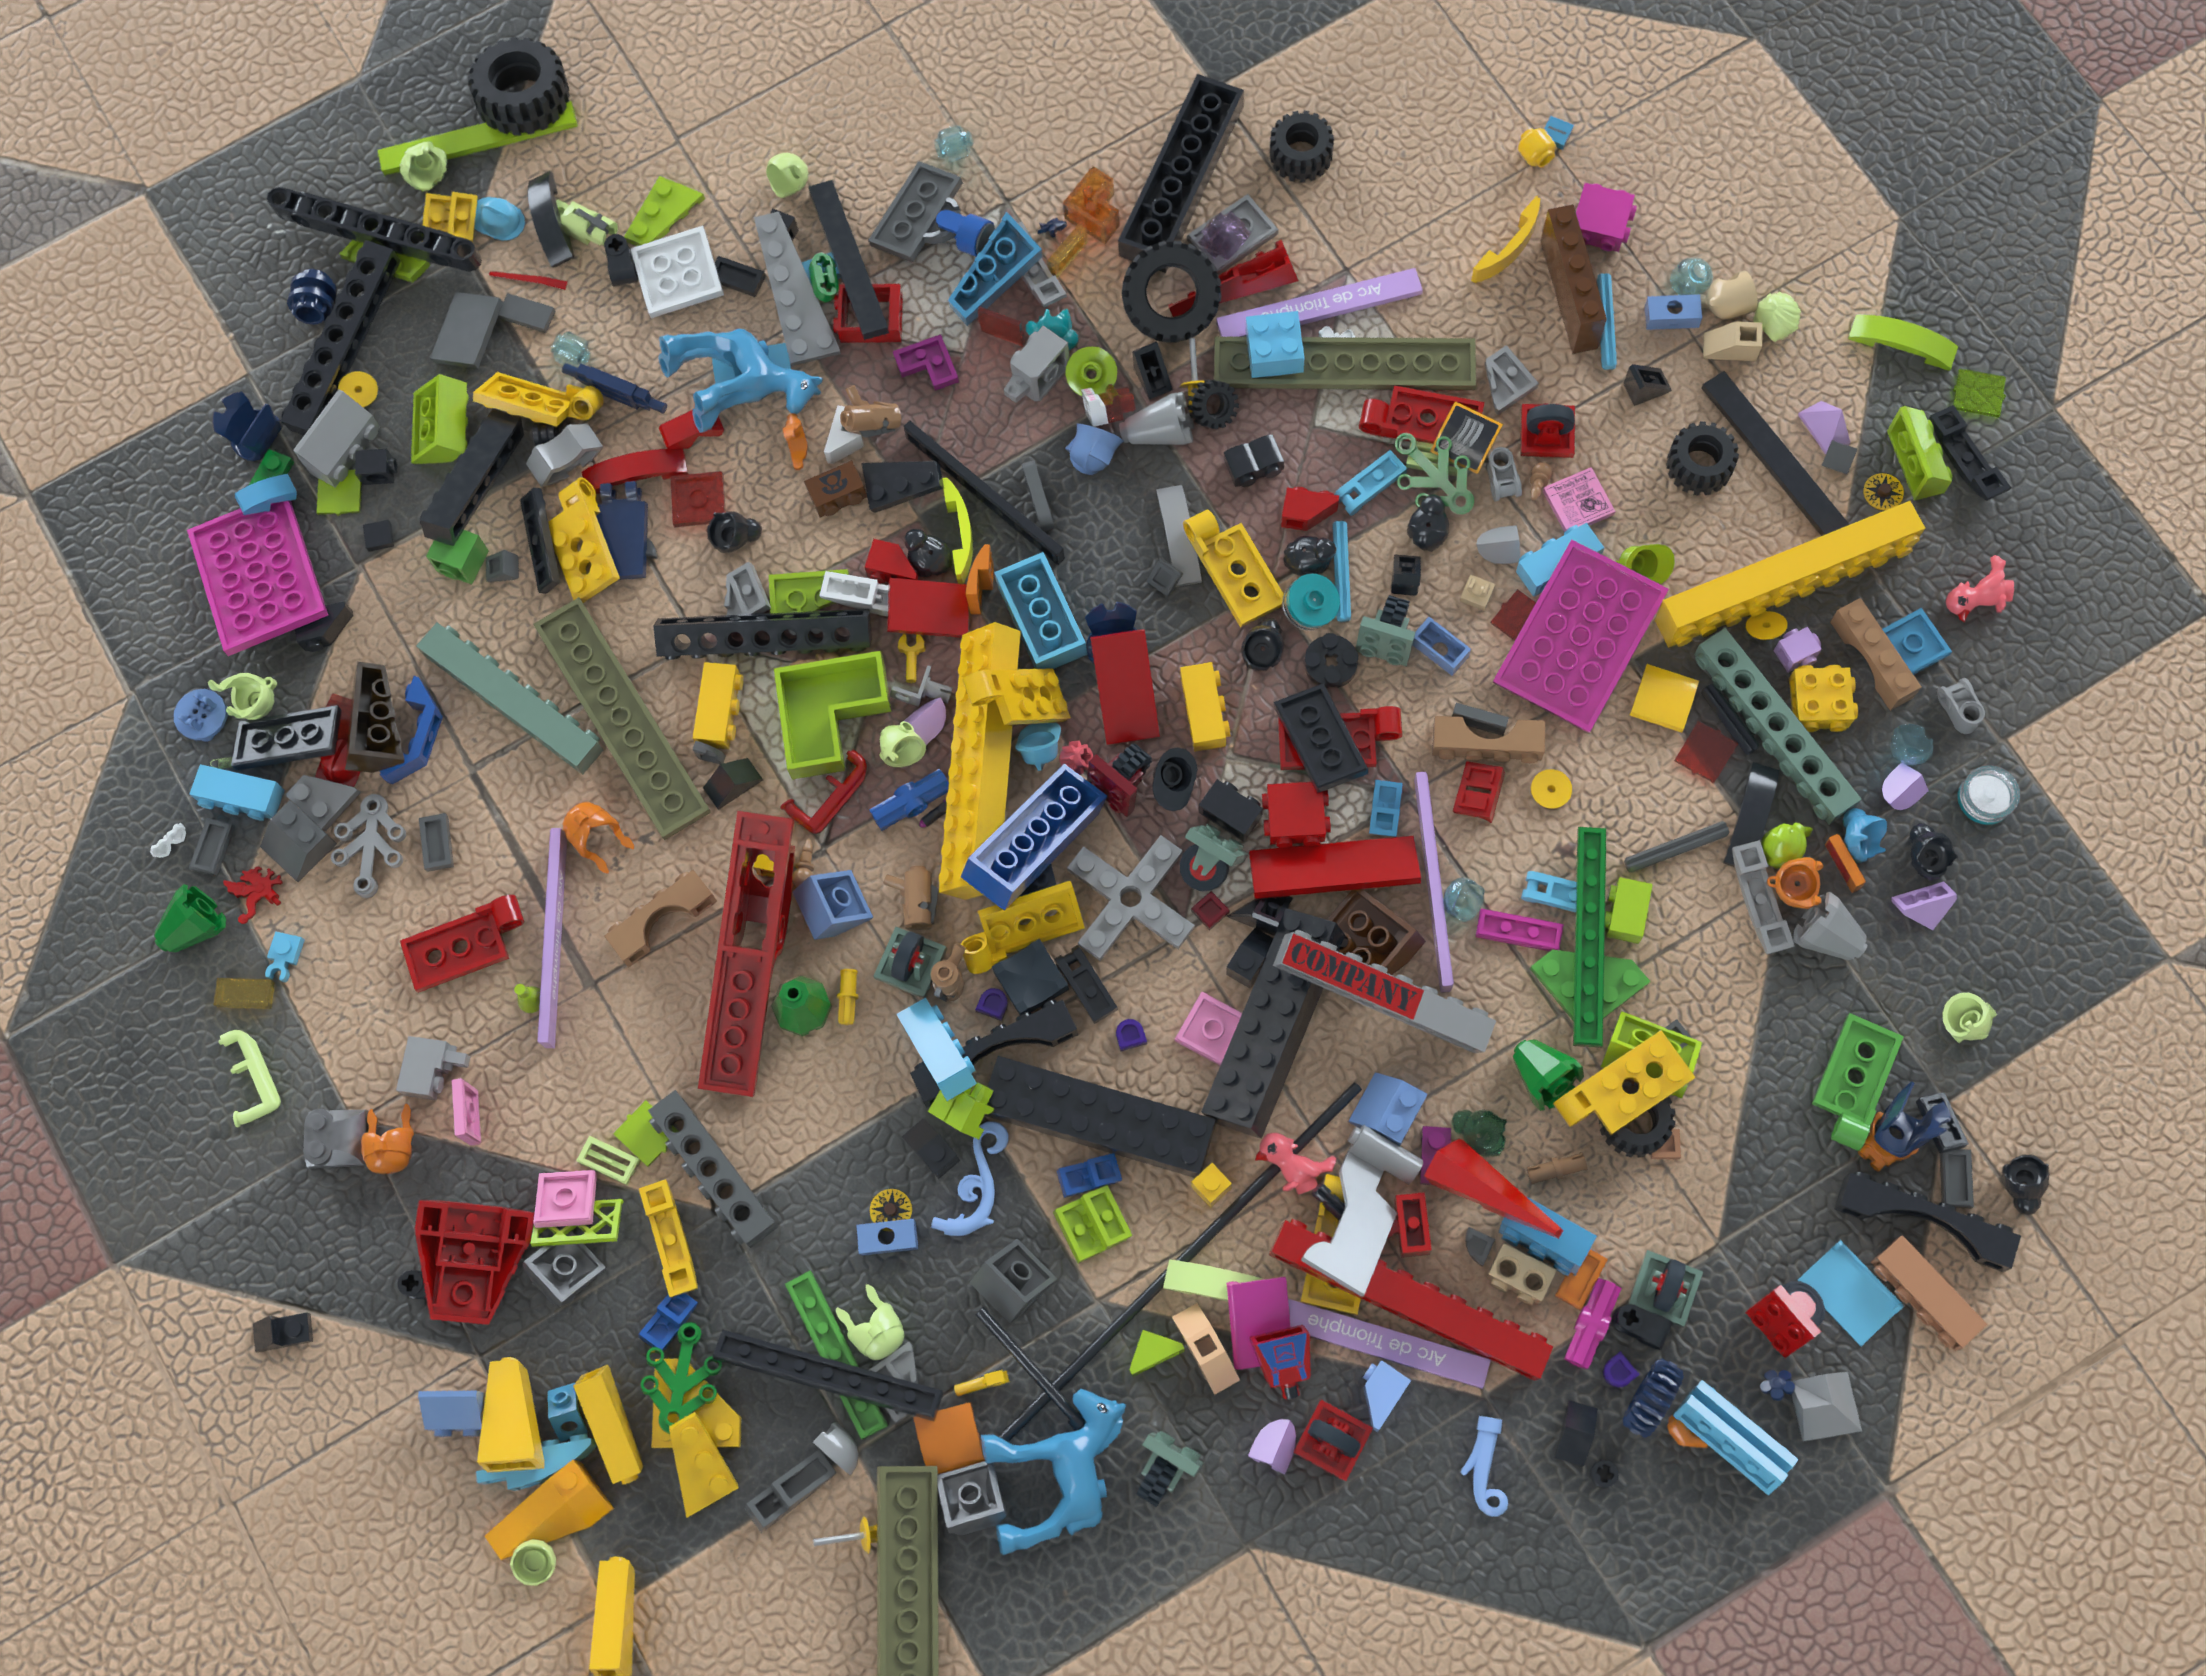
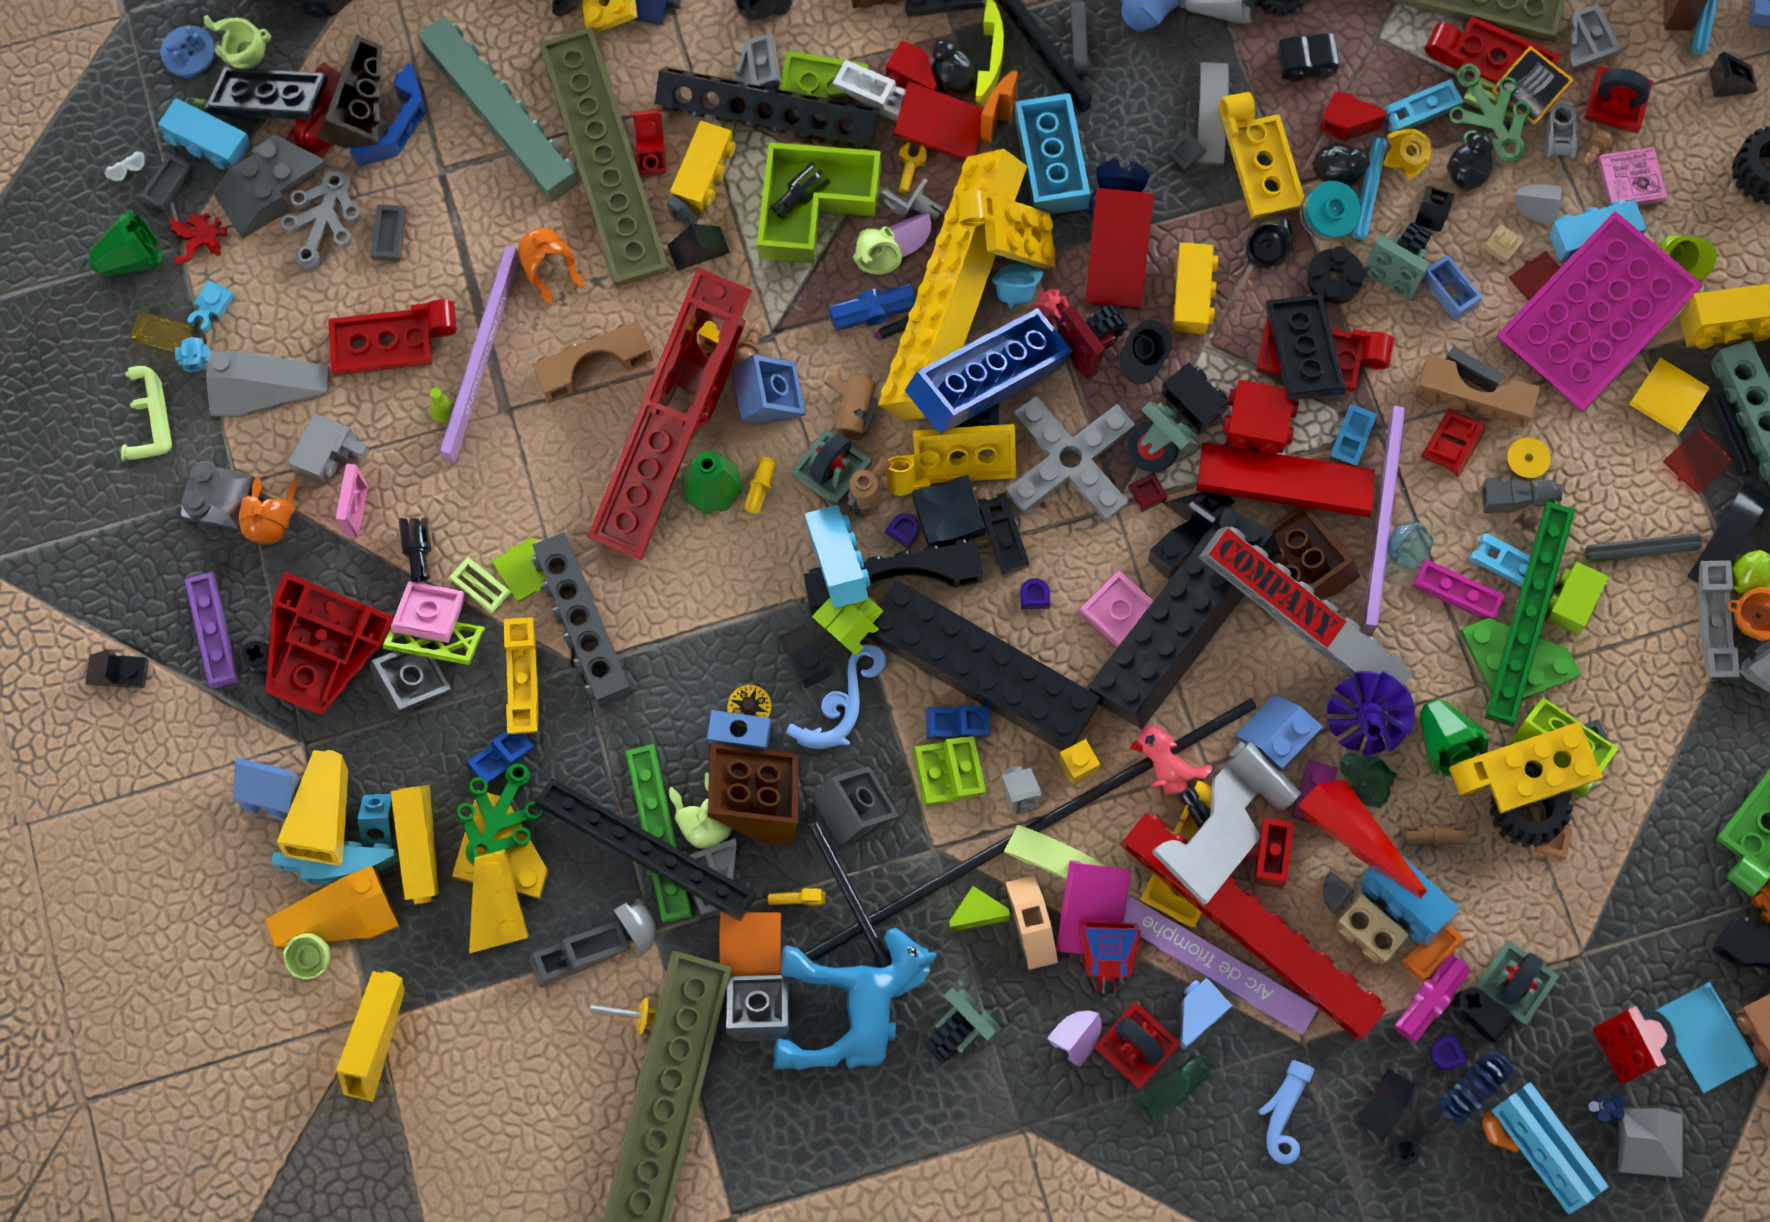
camera: 10 degrees right, 0 degrees up
(278, 1008) = (192, 354): none -> medium azure gear
(341, 1020) = (252, 382): none -> light grey wedge
(363, 1269) = (212, 630): none -> medium lavender tile
(538, 1138) = (416, 546): none -> black arm
(661, 694) = (649, 142): none -> red slope
(812, 709) = (797, 194): none -> black arm
(835, 801) = (797, 290): red piece -> none
(916, 1292) = (754, 791): none -> reddish brown slope
(1164, 1225) = (1020, 790): none -> light grey slope
(1364, 533) = (1401, 155): none -> yellow piece
(1377, 1470) = (1174, 1087): none -> clear green piece
(1477, 1065) = (1382, 711): none -> dark purple piece
(1550, 826) = (1517, 494): none -> dark grey piece

